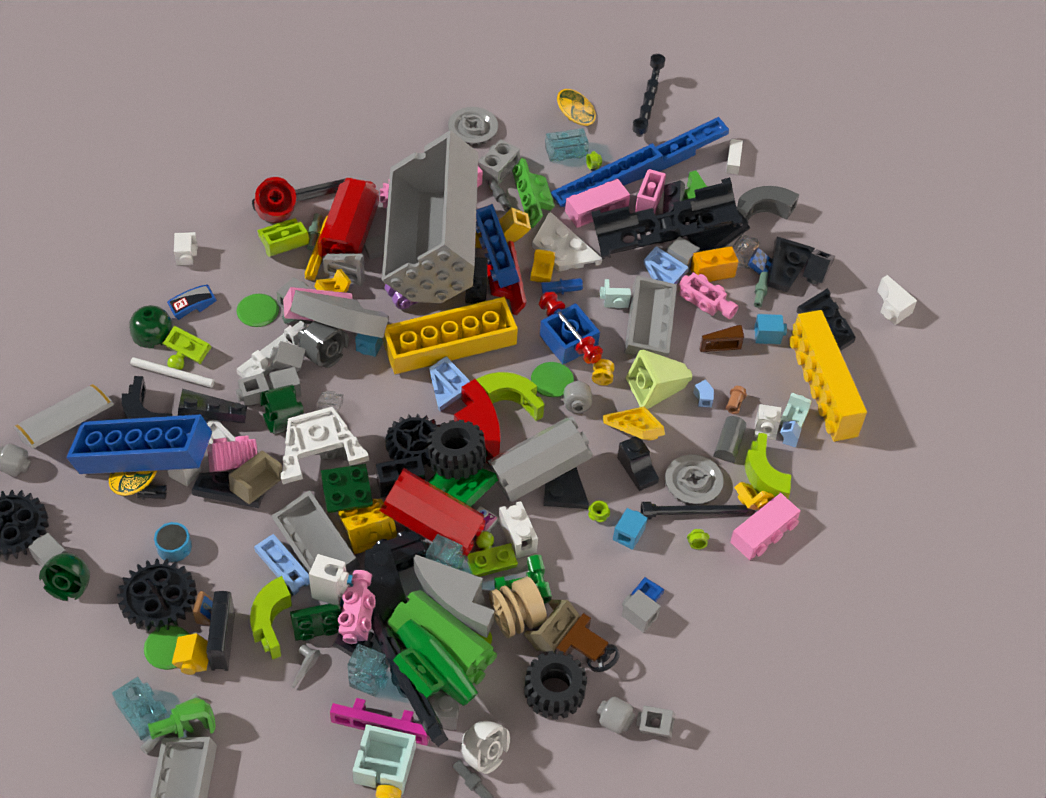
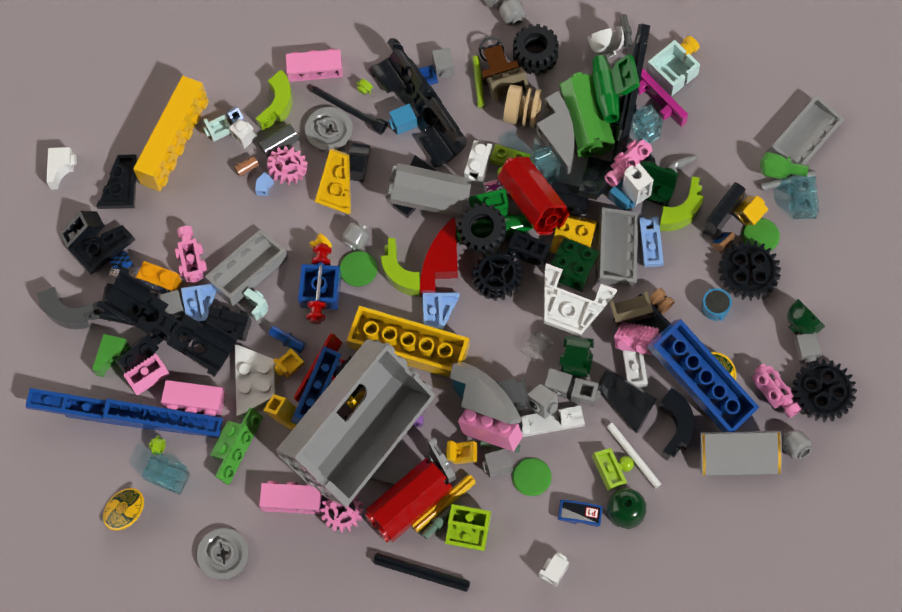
camera: 135 degrees left, 15 degrees up
(66, 500) = (774, 390): none -> bright pink brick
(232, 511) = (661, 301): none -> medium nougat wheel
(275, 211) = (453, 563): red brick -> none
(499, 161) = (235, 488): light grey brick -> none
(499, 195) = (261, 462): dark grey bar -> none
(536, 573) = (494, 126): green bar -> none
(578, 536) = (433, 116): none -> black piece
(594, 624) = (478, 81): none -> lime bar
(598, 506) = (412, 142): lime plate -> none
(622, 267) = (231, 321): none -> black brick
(640, 125) = (17, 503): black bar -> none
(656, 378) = (290, 209): yellowish green slope -> none
(693, 425) = (287, 165): none -> bright pink gear
(722, 340) = (207, 213): reddish brown slope -> none
(734, 156) = (42, 374): white piece -> none
(750, 498) = (305, 88): yellow bracket -> none
(761, 289) = (142, 241): sand green bar -> none
(769, 329) = (170, 202): dark azure brick -> none

